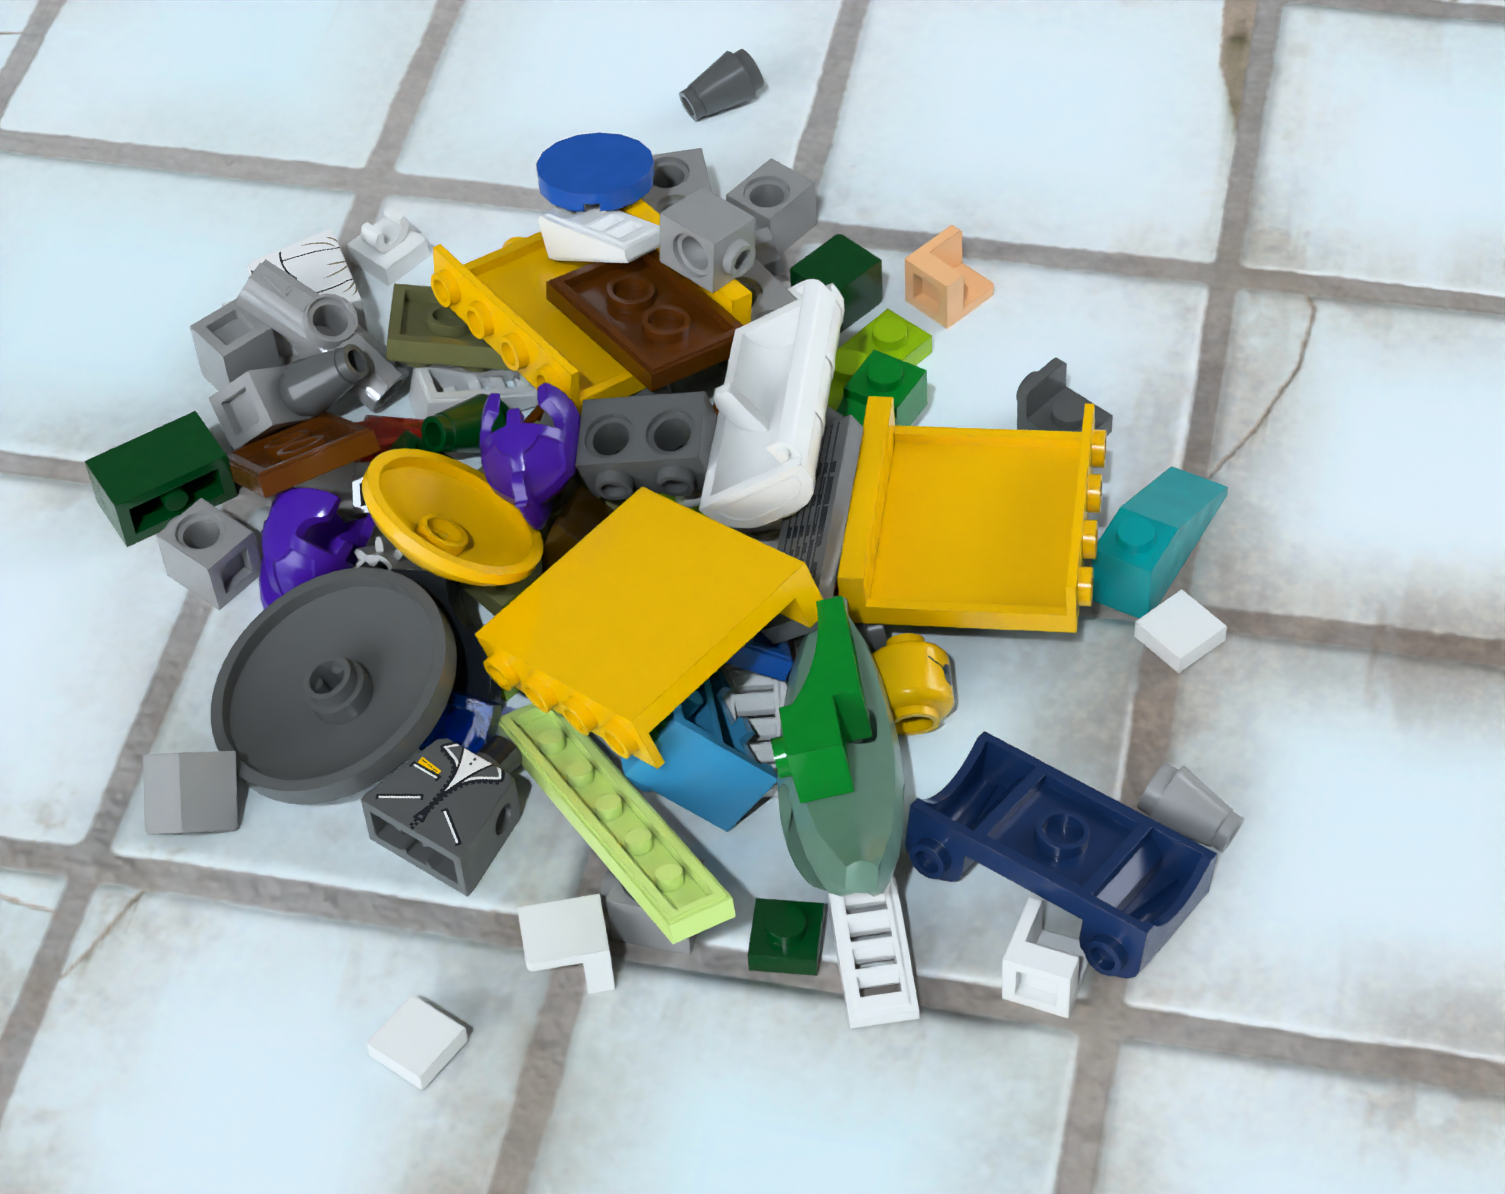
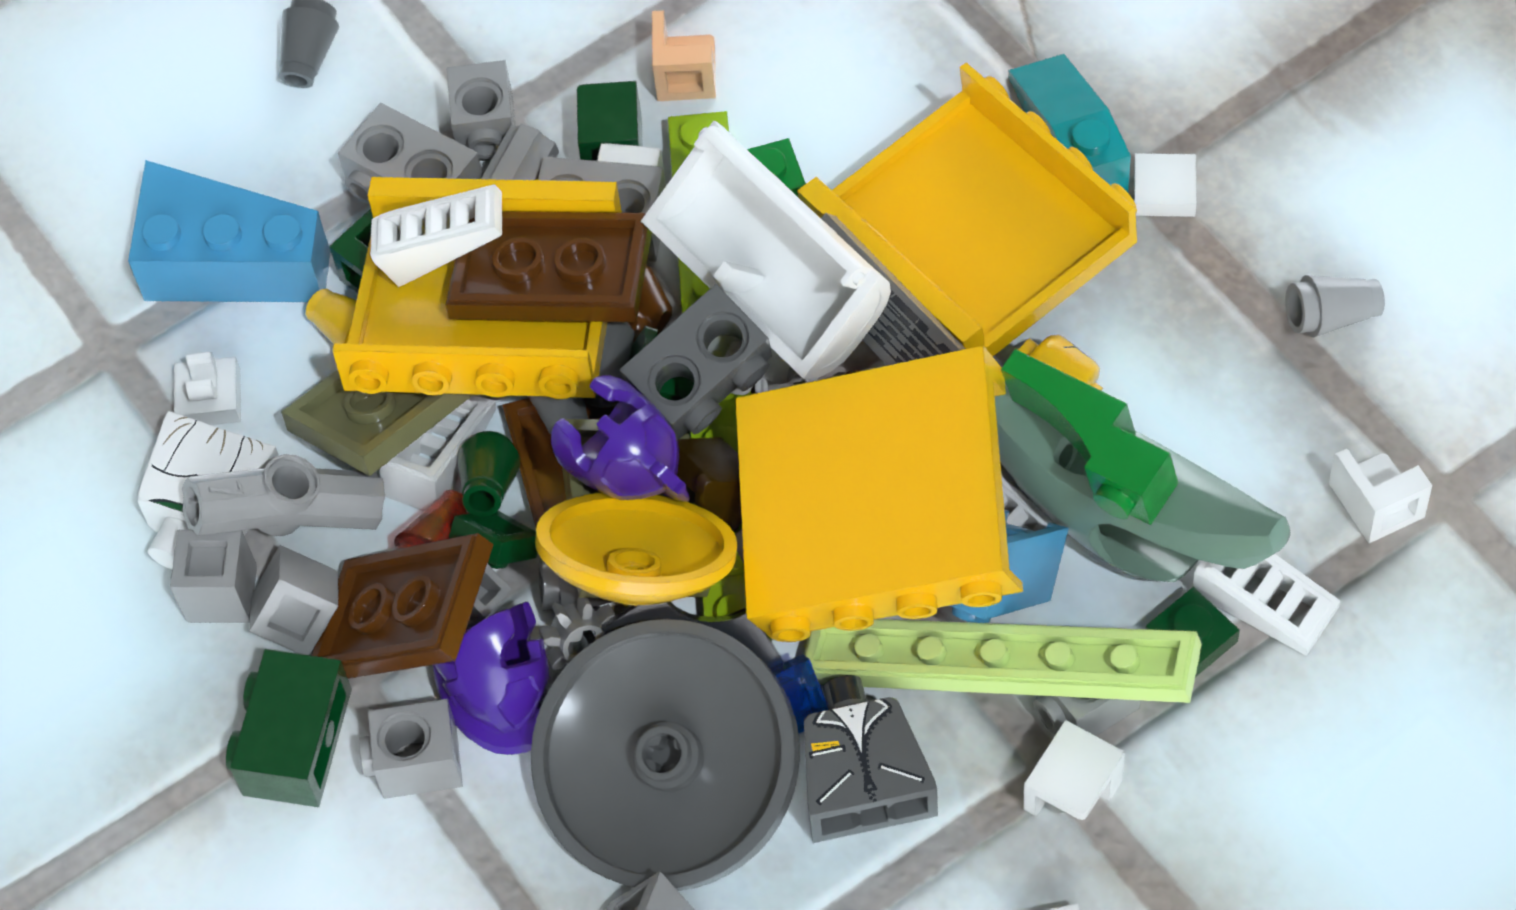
camera: 45 degrees left, 10 degrees up
(322, 379) = (333, 535): dark grey cone -> none
(490, 152) = (223, 242): none -> dark azure wedge
(595, 170) = (372, 184): blue tile -> none
(707, 239) = (549, 166): light grey brick -> none
(1050, 405) = (890, 97): dark grey bracket -> none
(1067, 845) = (1305, 401): dark blue piece -> none

